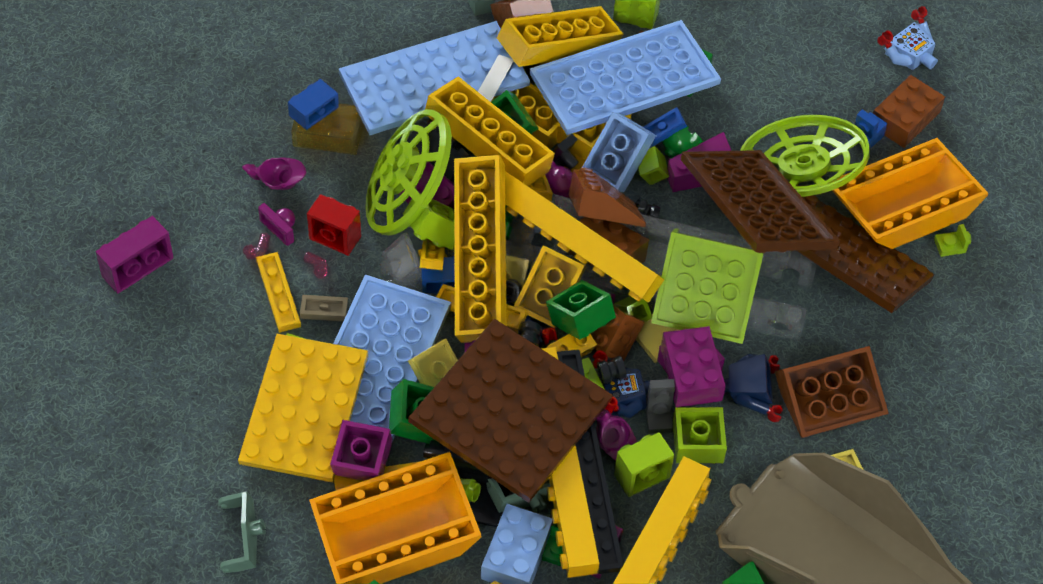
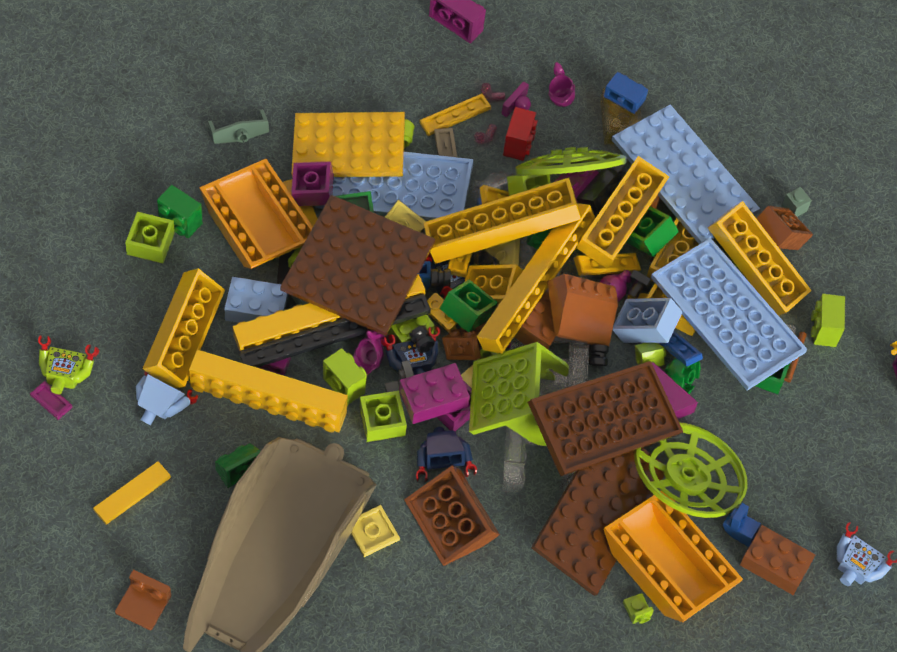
camera: 75 degrees right, 5 degrees up
(495, 77) = (690, 213): white sticker -> none

